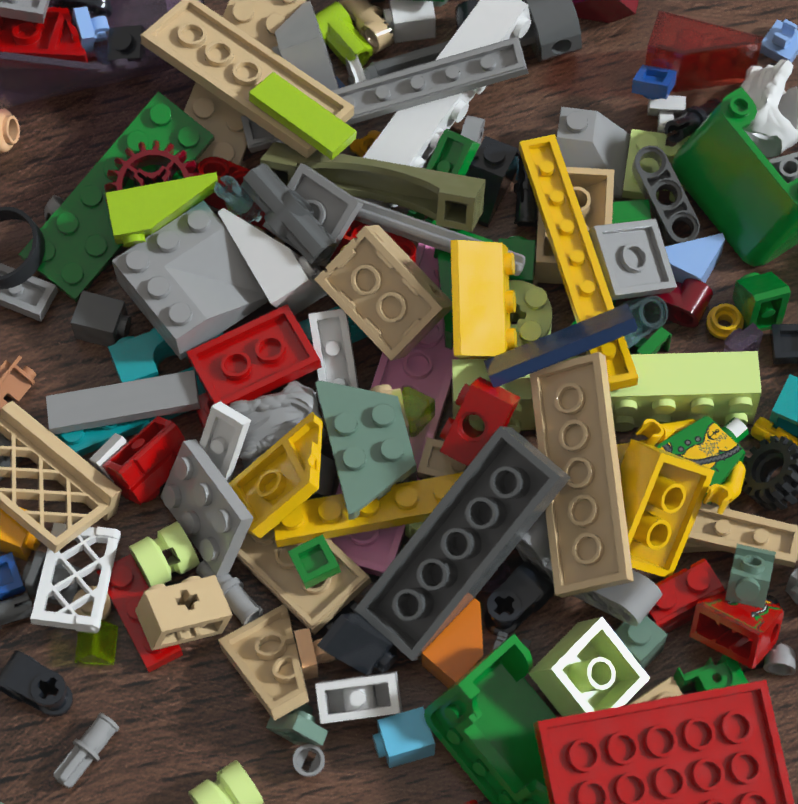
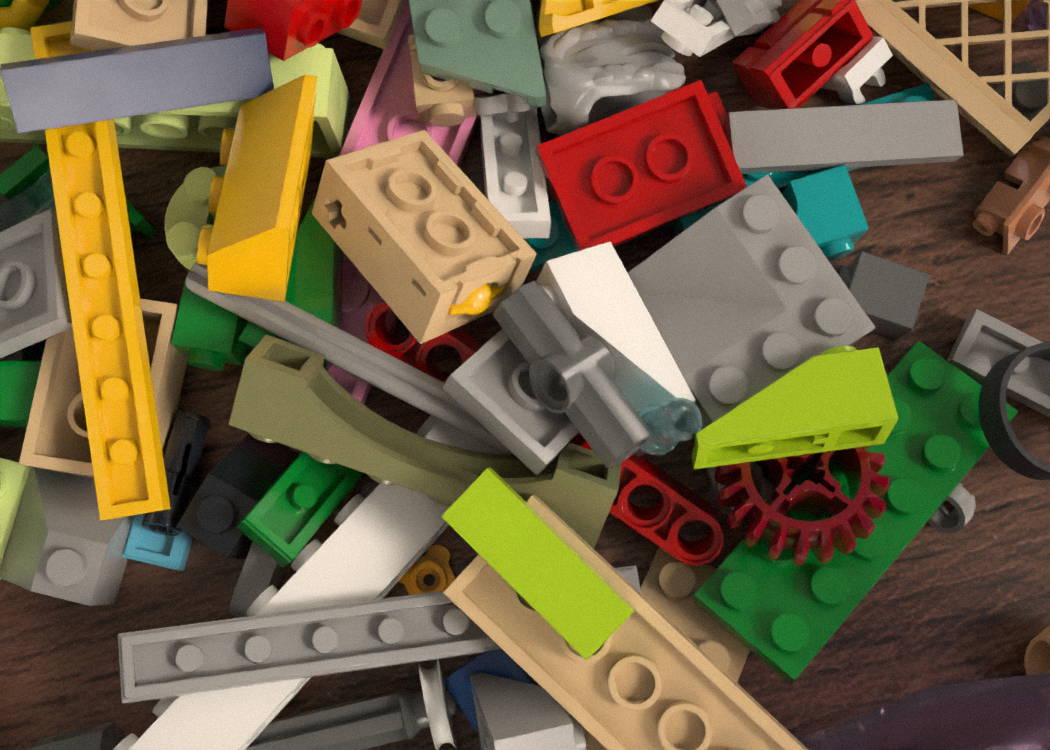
camera: 175 degrees left, 15 degrees up
(418, 409) = (392, 80): clear neon green slope -> none

